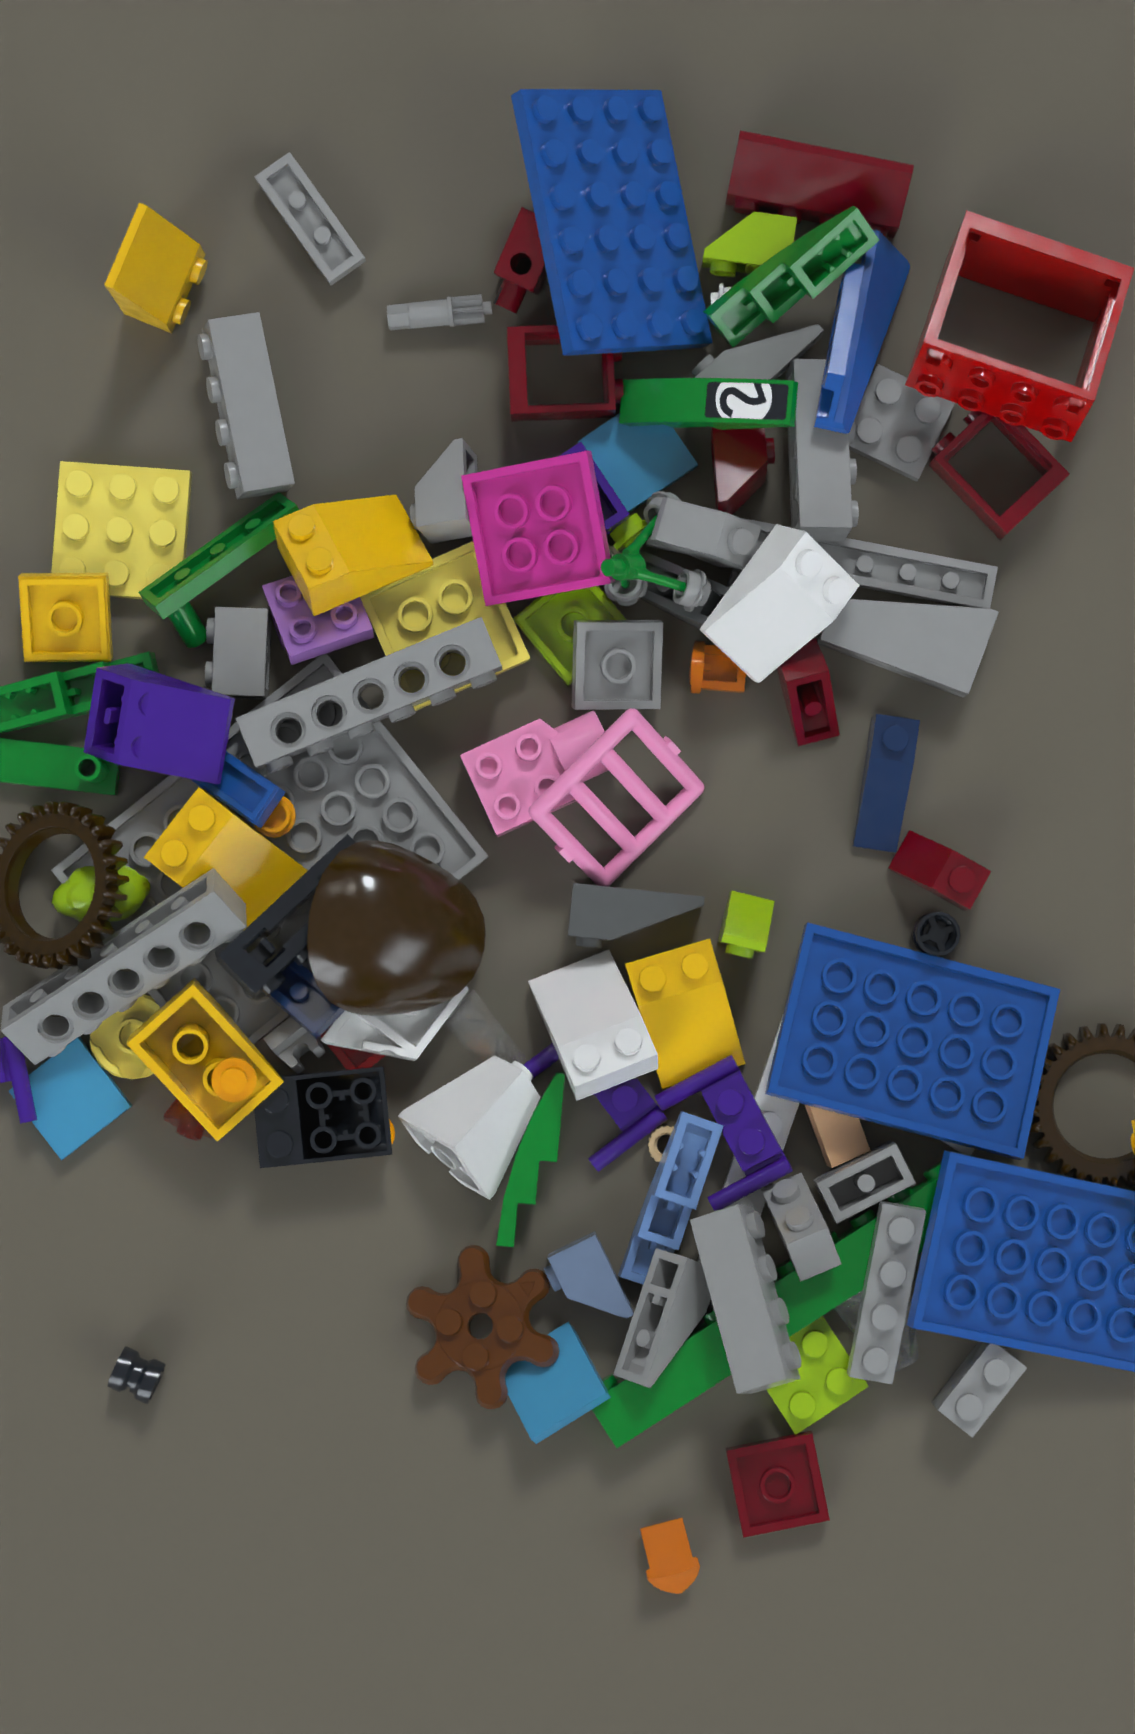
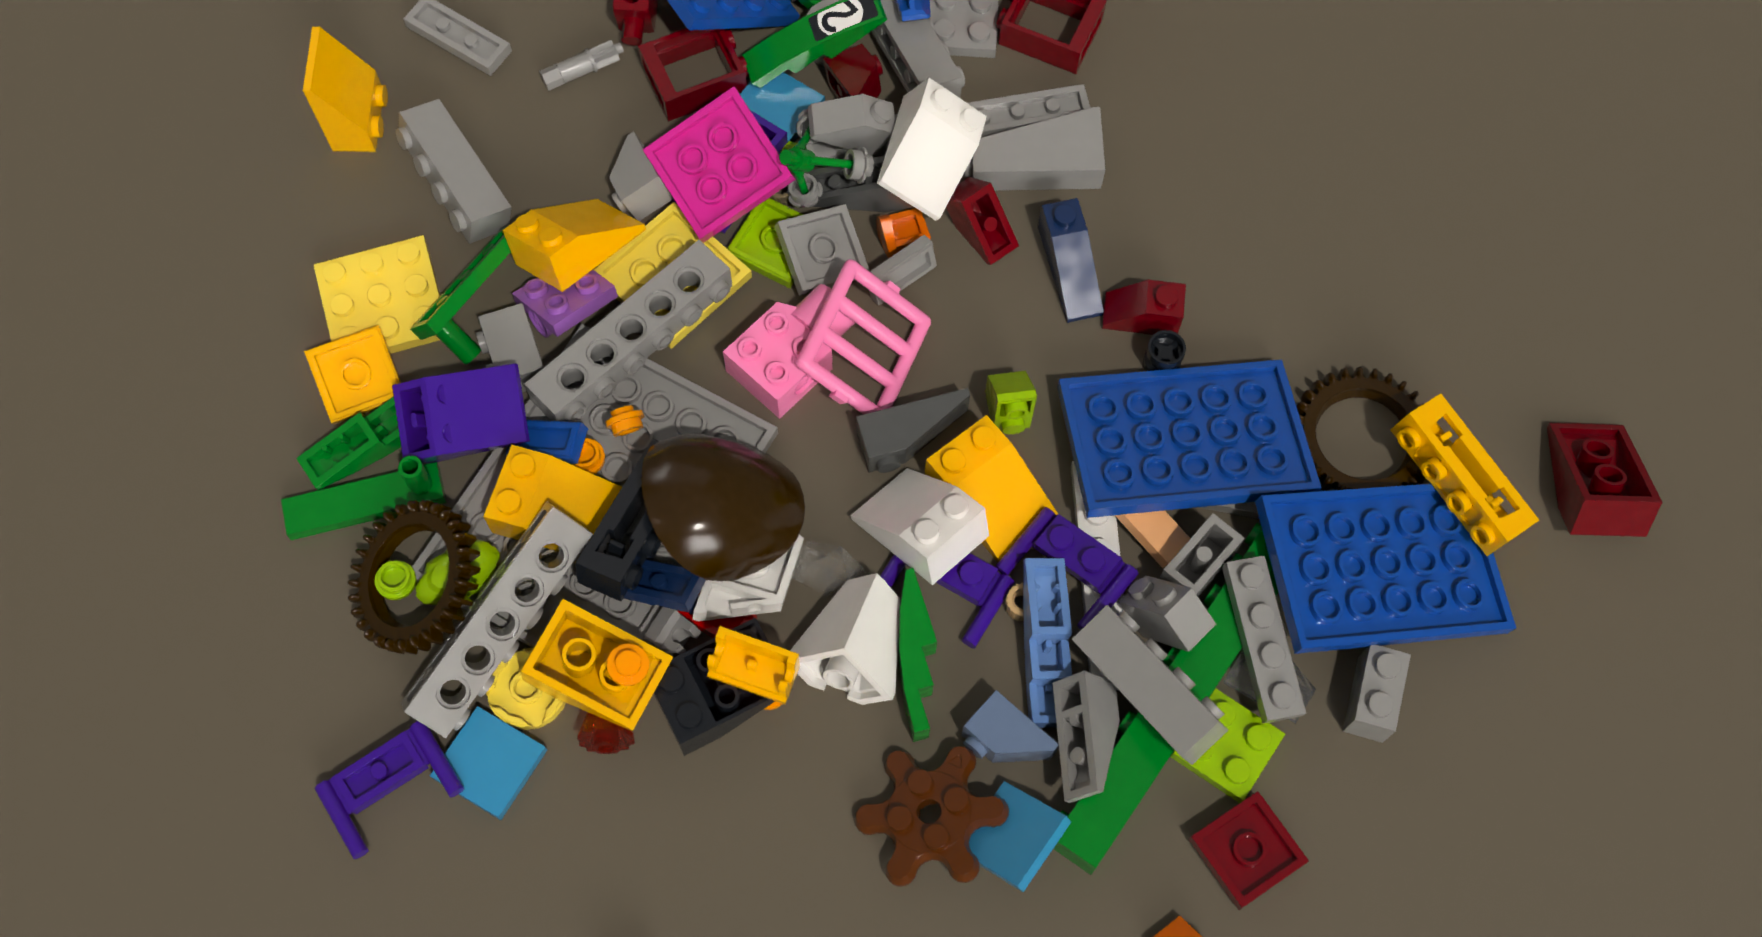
camera: 25 degrees left, 20 degrees down
(36, 874) = (395, 580): none -> lime plate
(328, 793) = (625, 421): none -> light orange plate
(358, 1125) = (753, 665): none -> yellow hinge
(697, 719) = (906, 265): none -> light grey tile

